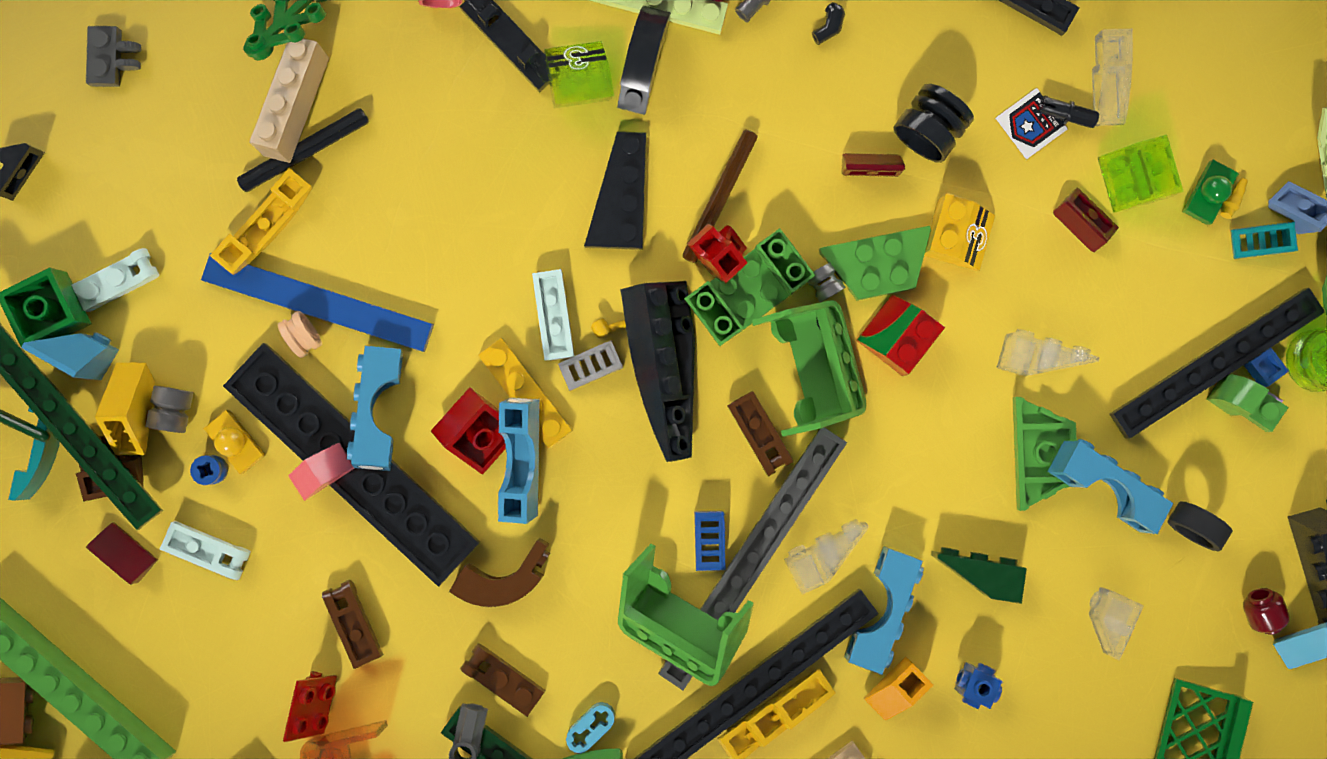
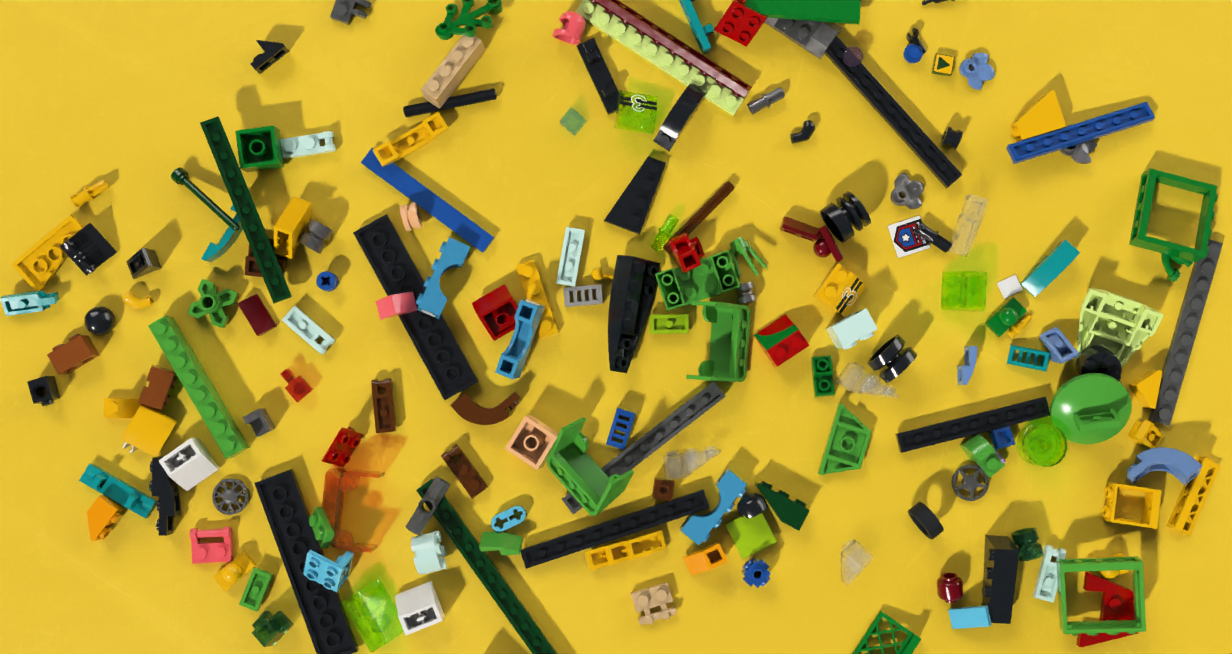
camera: 20 degrees right, 0 degrees up
(51, 558) = (216, 311): none -> bright green plant
(76, 354) = (271, 183): dark azure slope -> none
(177, 708) = (259, 421): none -> flat silver panel
(215, 640) = (297, 387): none -> clear red plate
(234, 442) = (348, 269): yellow tile -> none
(490, 117) = (572, 121): none -> clear light blue slope
(588, 605) = (532, 442): none -> light nougat brick
(678, 234) = (664, 232): none -> clear neon green axle
(729, 364) = (669, 324): none -> lime plate
(759, 432) = (673, 372): reddish brown plate -> none
(795, 219) = (740, 248): none -> bright green plant
(801, 609) = (663, 489): none -> reddish brown brick
(879, 263) = (784, 292): bright green wing -> none
(920, 174) = (826, 246): none -> dark red tile
(939, 589) = (751, 505): none -> black hair
(949, 628) = (750, 534): none -> lime tile
(976, 366) = (822, 376): none -> green slope
(998, 283) = (850, 329): none -> light aqua brick
(1009, 57) = (909, 190): none -> flat silver plate
(1071, 306) = (892, 358): none -> black wheel
(1085, 220) = (922, 308): dark red slope -> none
(1138, 503) = (893, 495): dark azure arch -> none
(1182, 290) = (965, 372): none -> medium blue slope
(1200, 146) = (1009, 286): none -> white sticker
(1241, 448) = (970, 482): none -> flat silver wheel
(1251, 99) = (1050, 267): none -> teal slope

